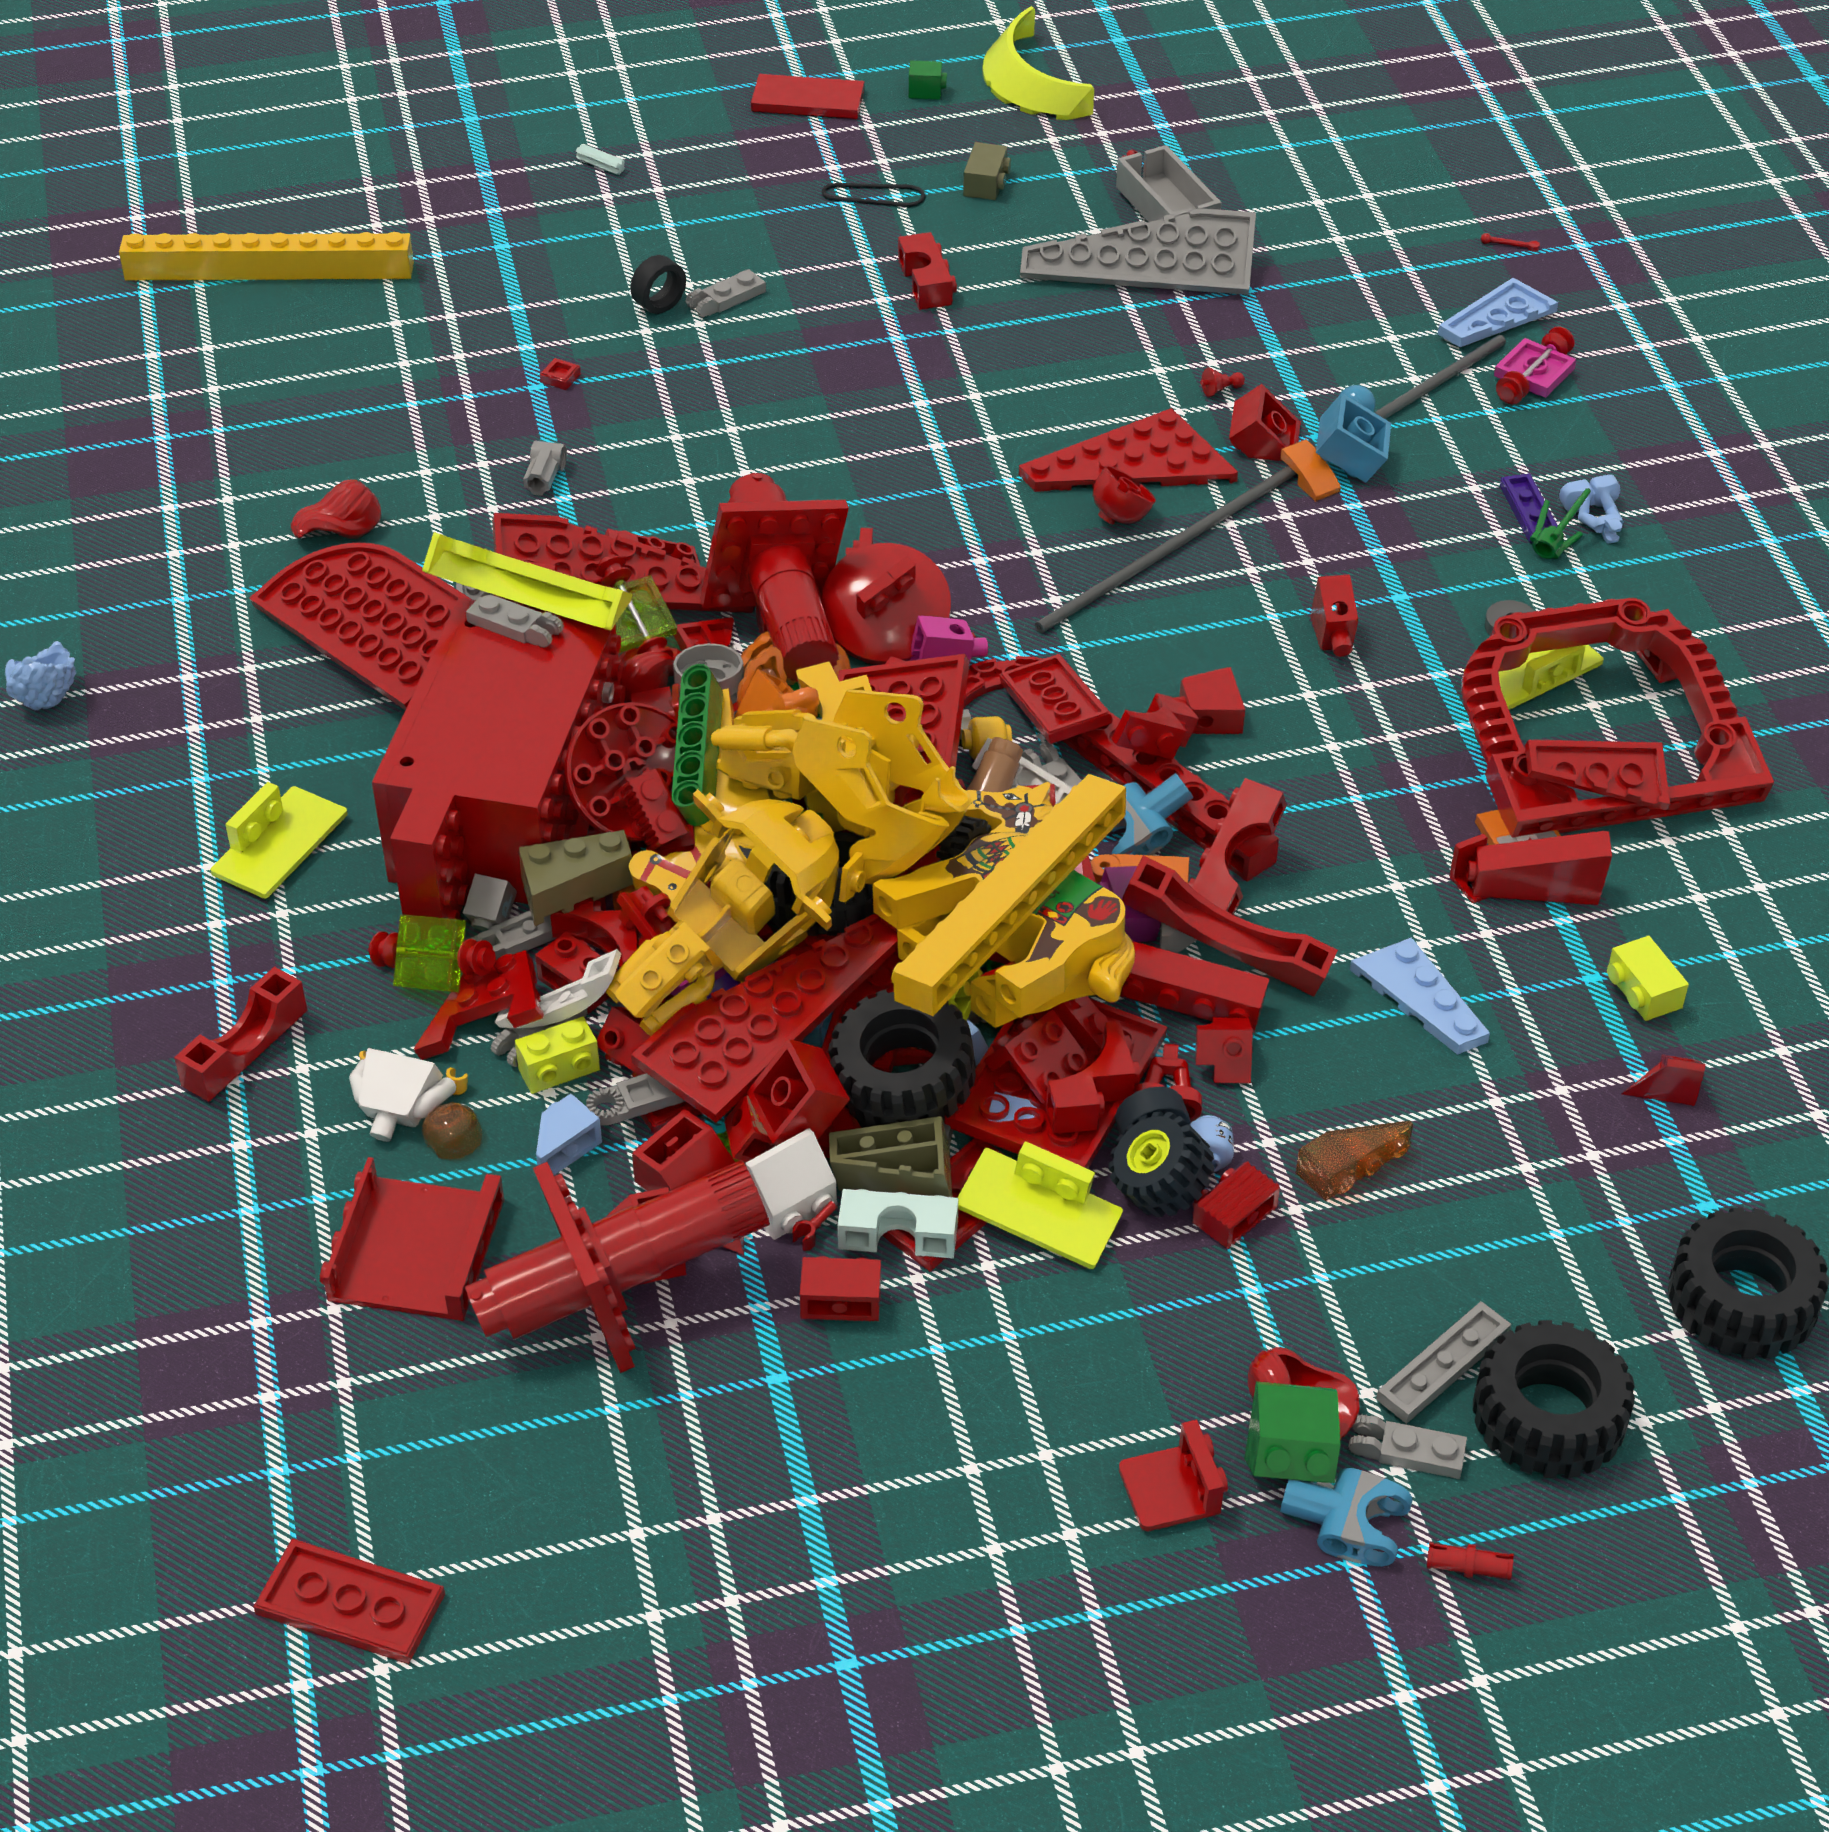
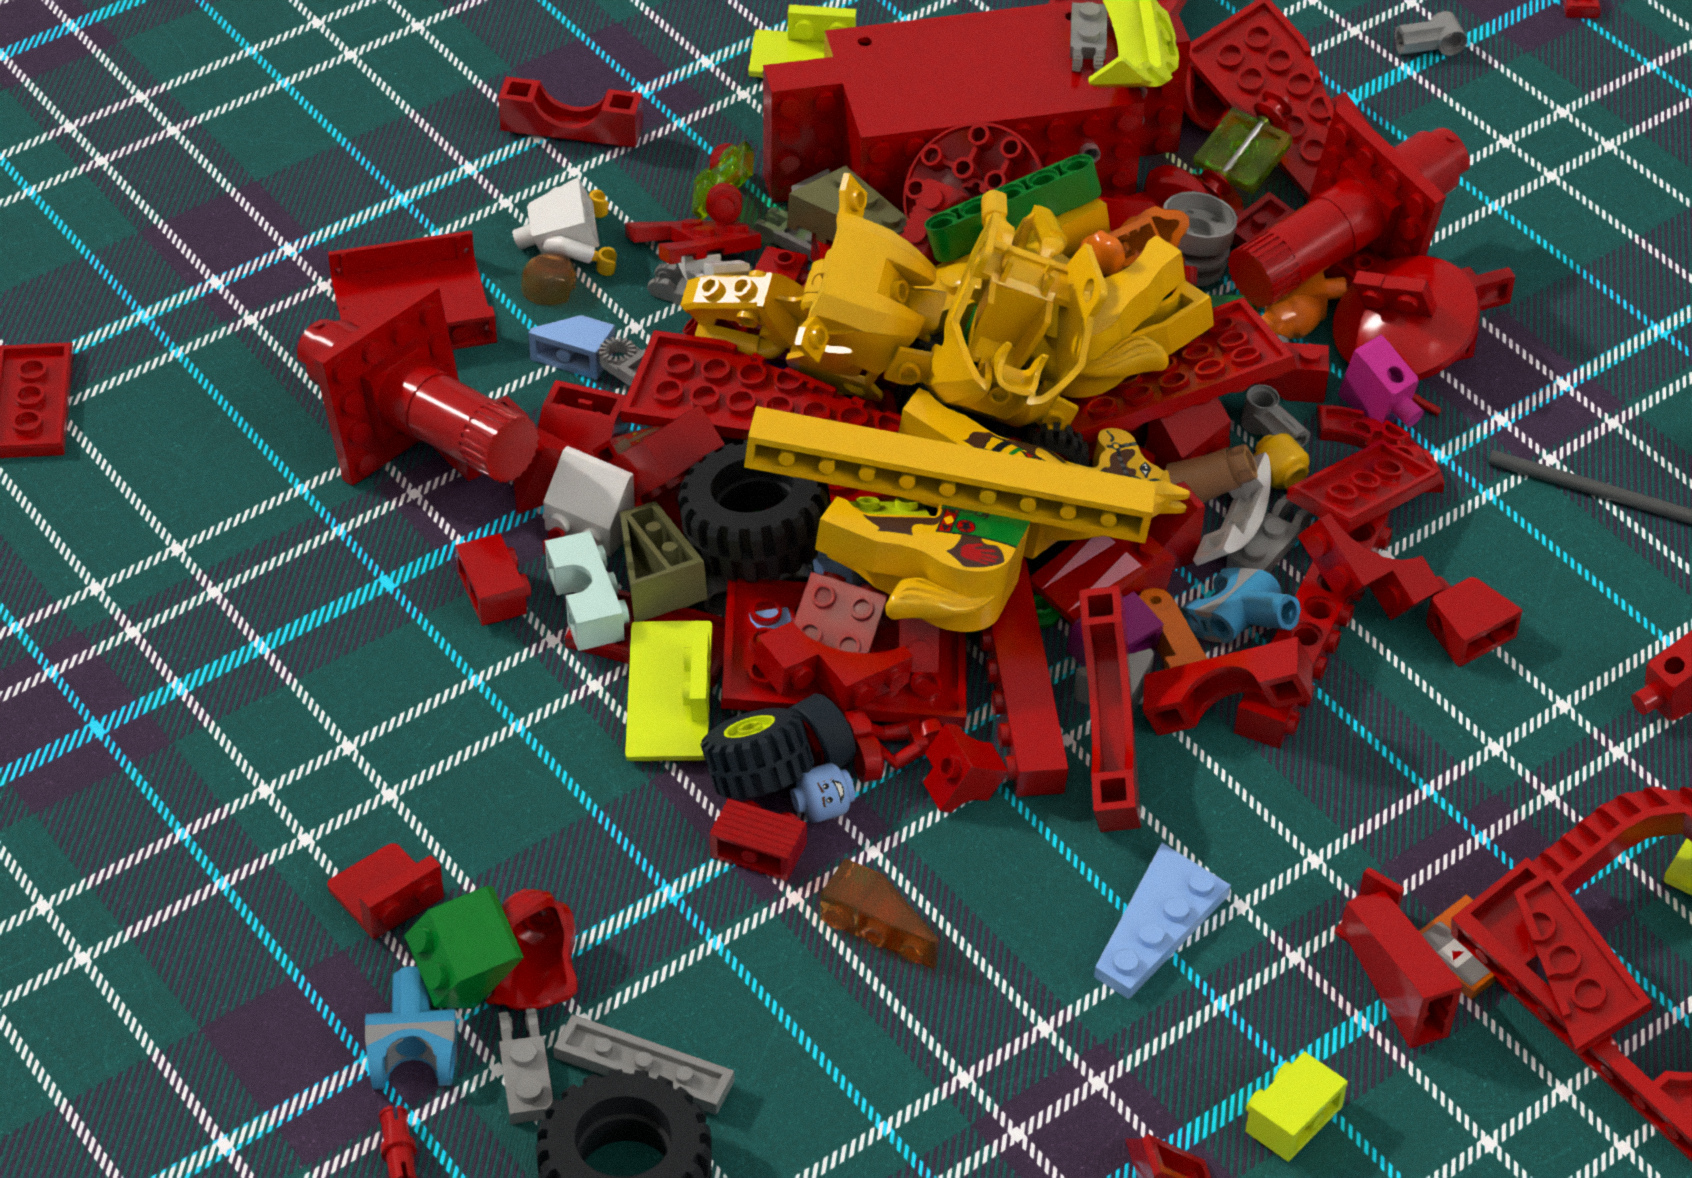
camera: 65 degrees right, 0 degrees up
(557, 1055) = (655, 302): neon yellow brick -> none

